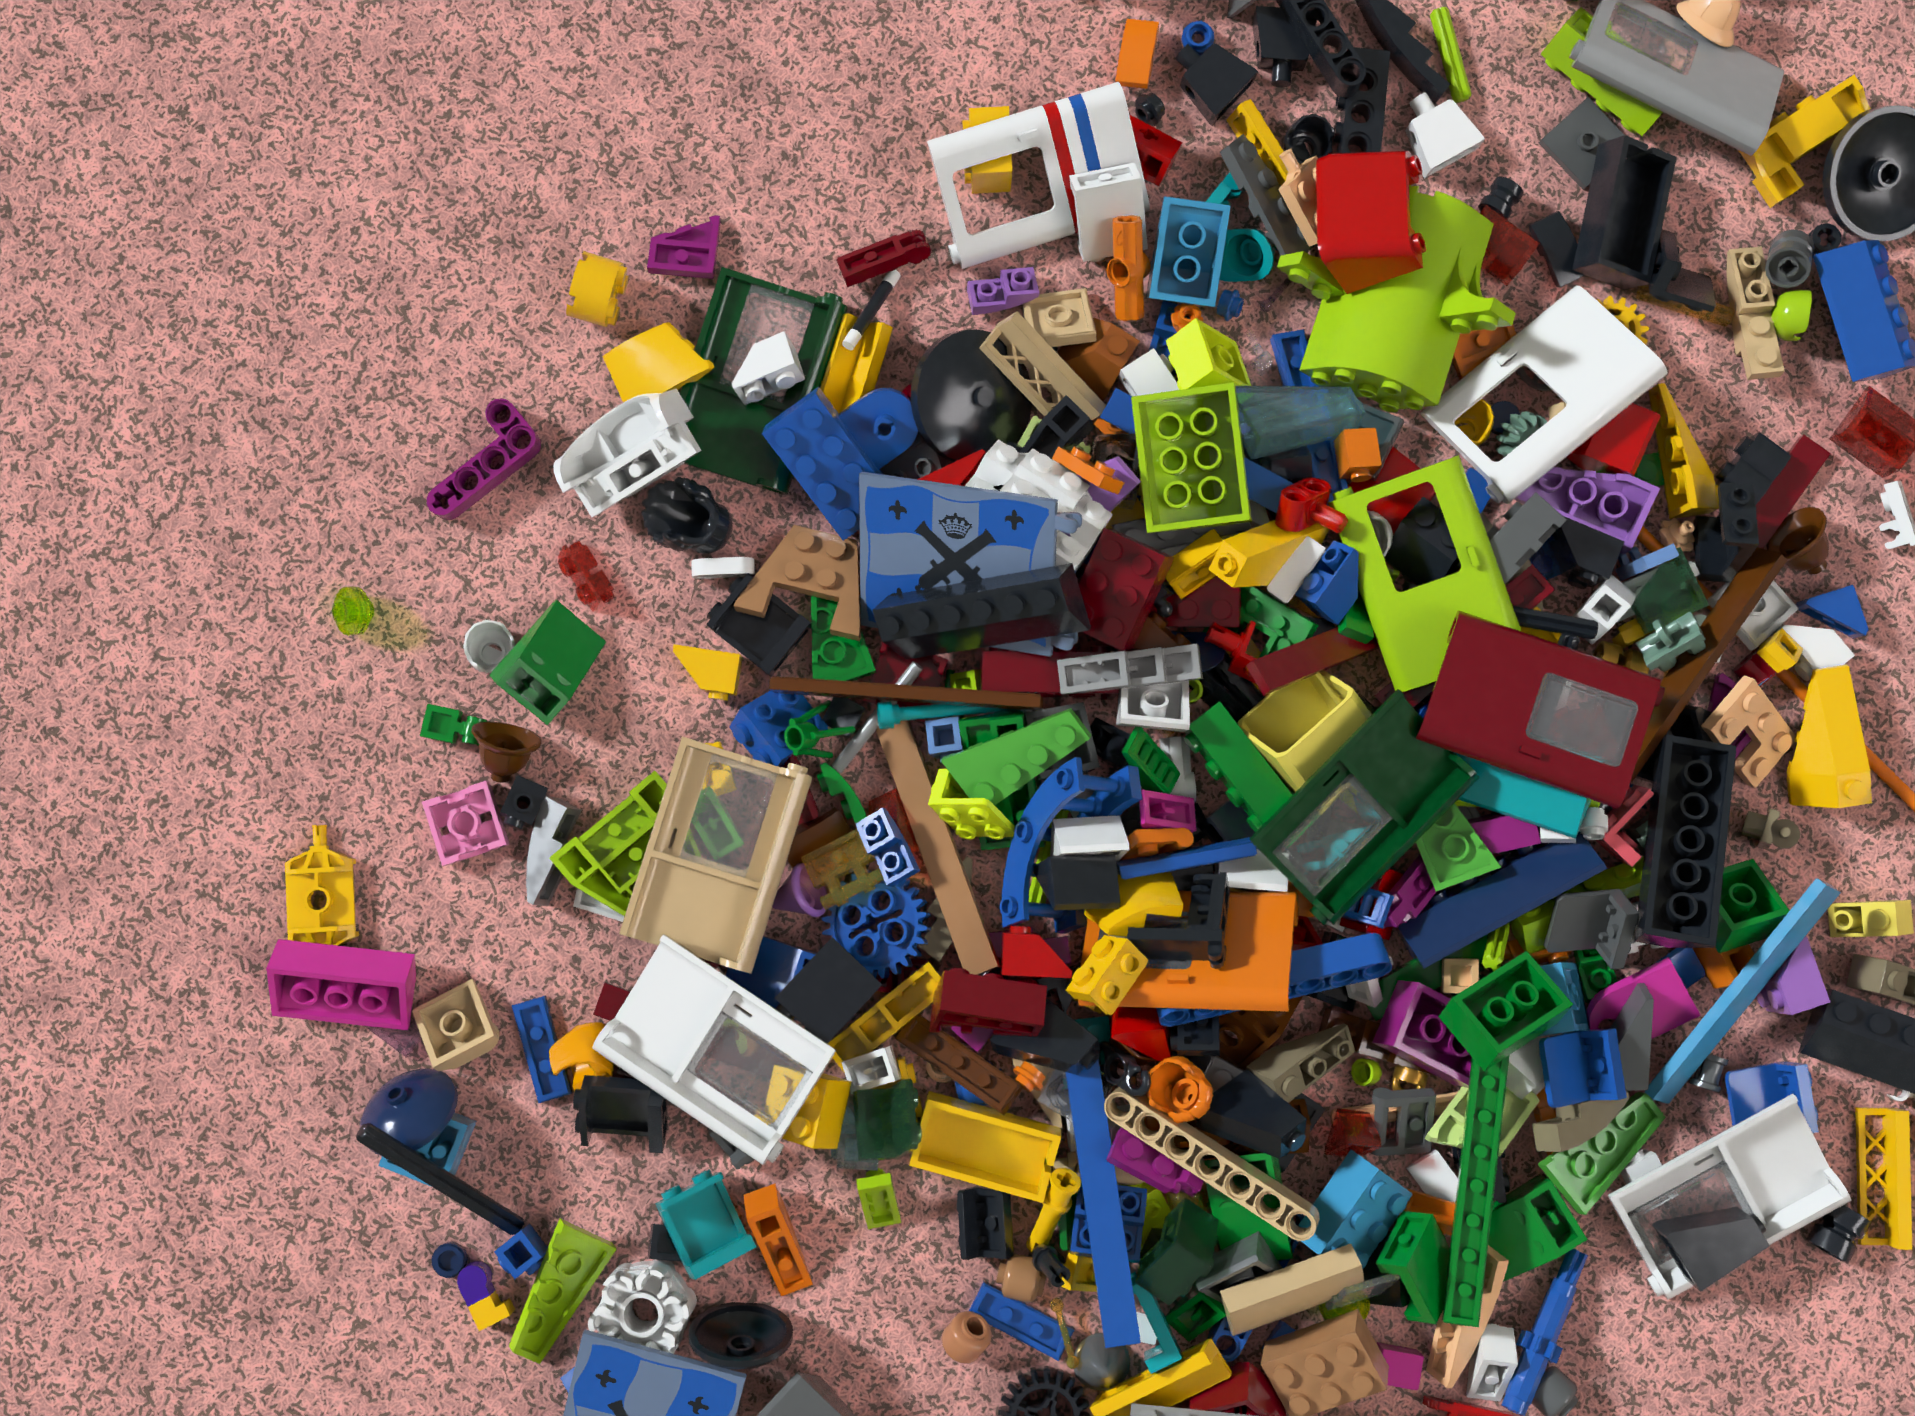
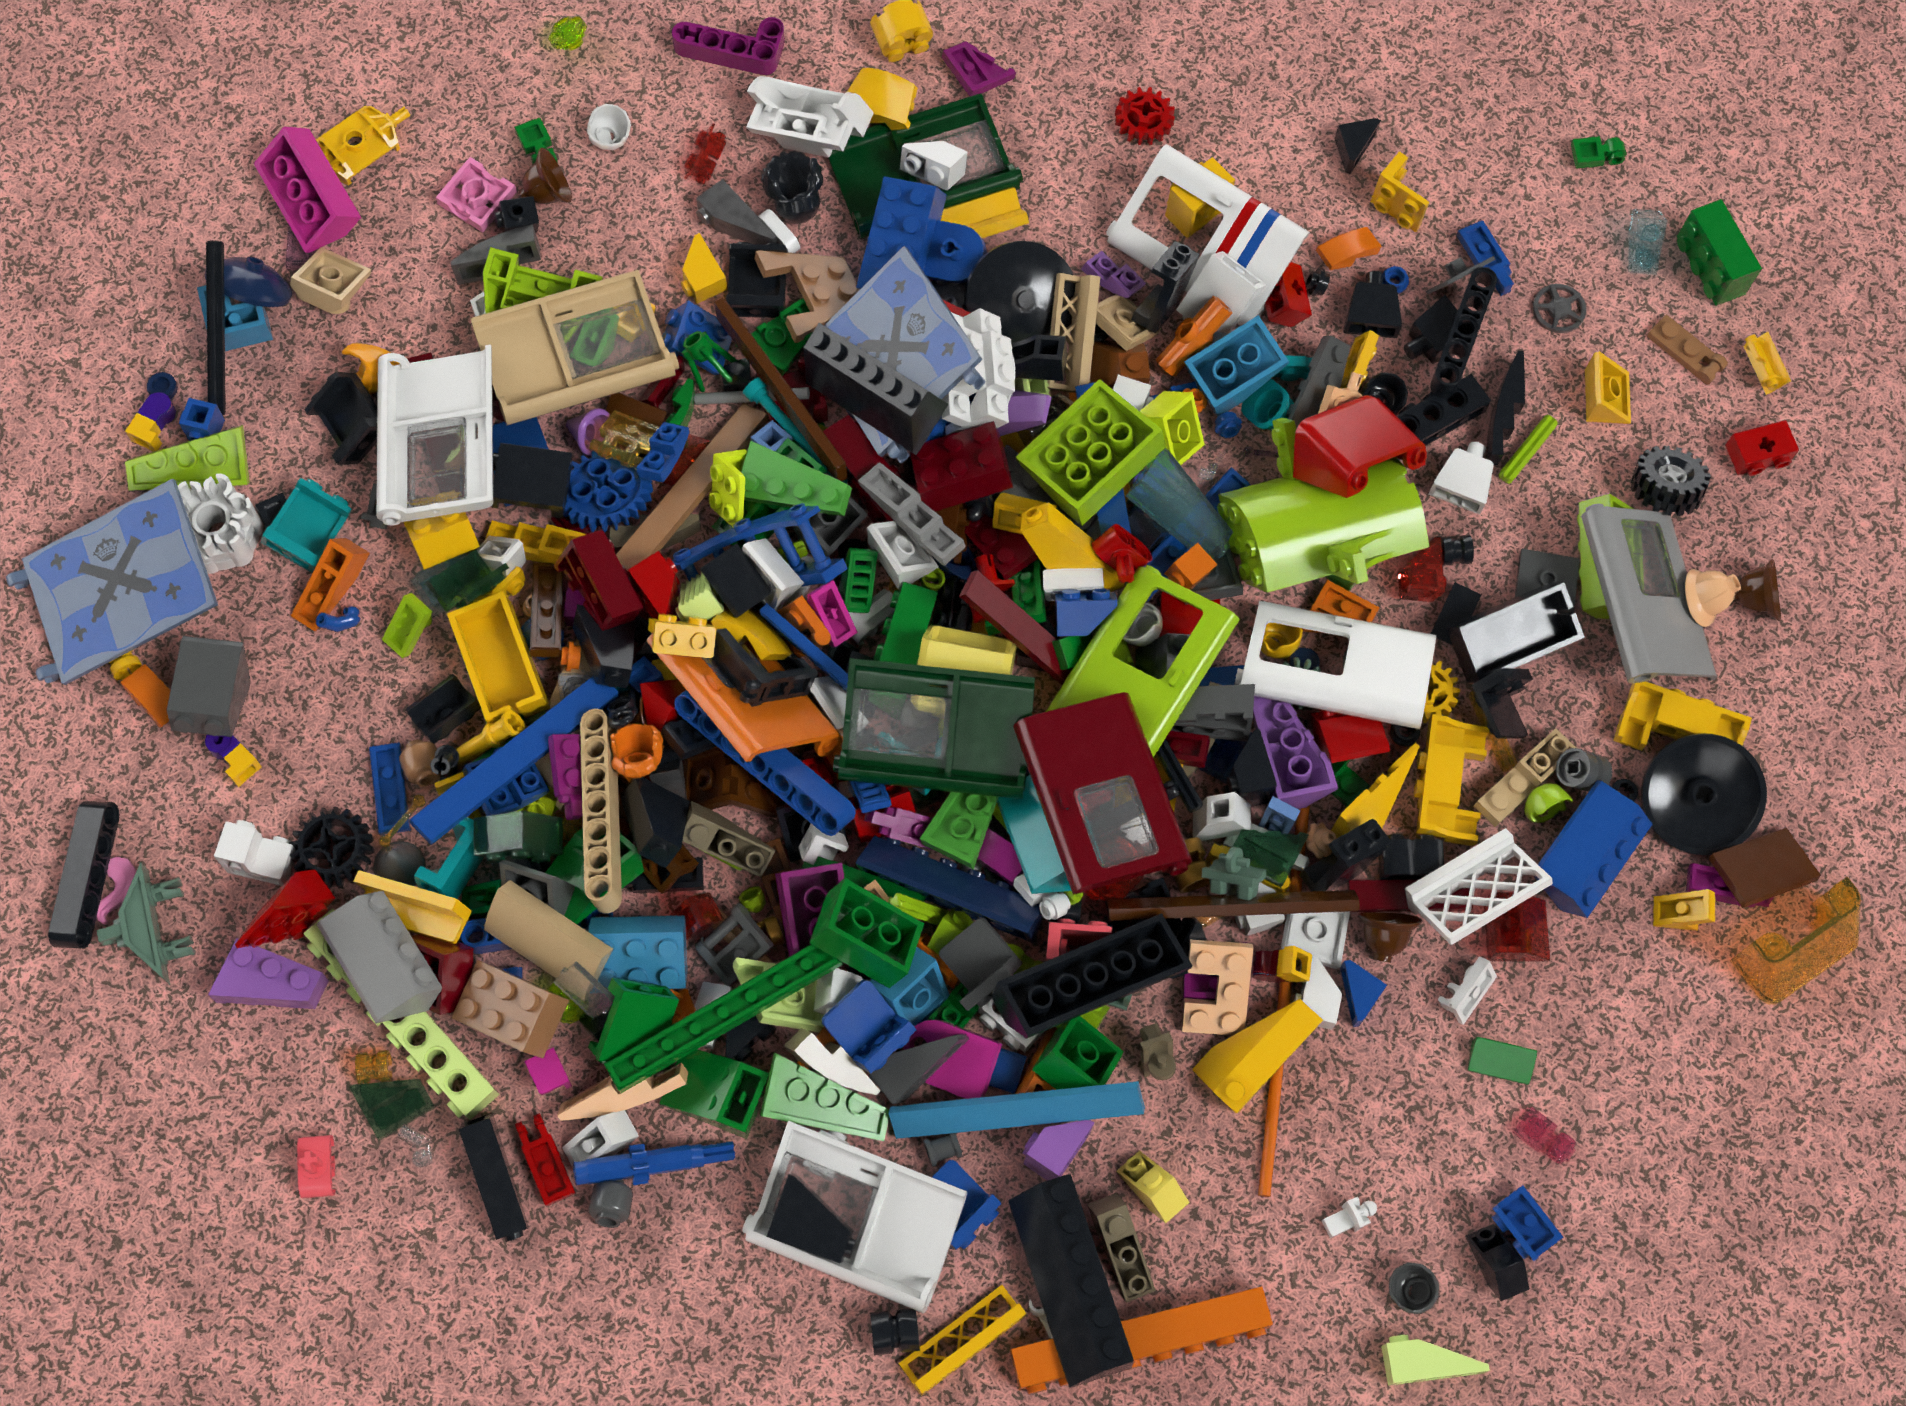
camera: 50 degrees right, 15 degrees down
(537, 1037) = (368, 330): blue tile -> none
(549, 662) = (627, 167): green slope -> none
(668, 599) = (731, 215): none -> flat silver slope
(740, 1335) = (241, 595): black dish -> none
(823, 1259) = (348, 620): none -> blue arm
(852, 117) = (1131, 116): none -> red gear
(871, 309) = (1030, 202): black bar -> none
(884, 256) = (1073, 187): dark red hinge -> none
(966, 1337) = (350, 753): nougat head -> none
(1068, 259) = (1176, 270): none -> black panel
(1070, 929) = (698, 600): none -> yellowish green brick
(1095, 1022) = (643, 672): none -> blue plate
(1098, 473) = (1025, 383): orange plate -> none
(1705, 387) = (1441, 779): none -> yellow bracket
(1803, 439) = (1463, 873): none -> white fence

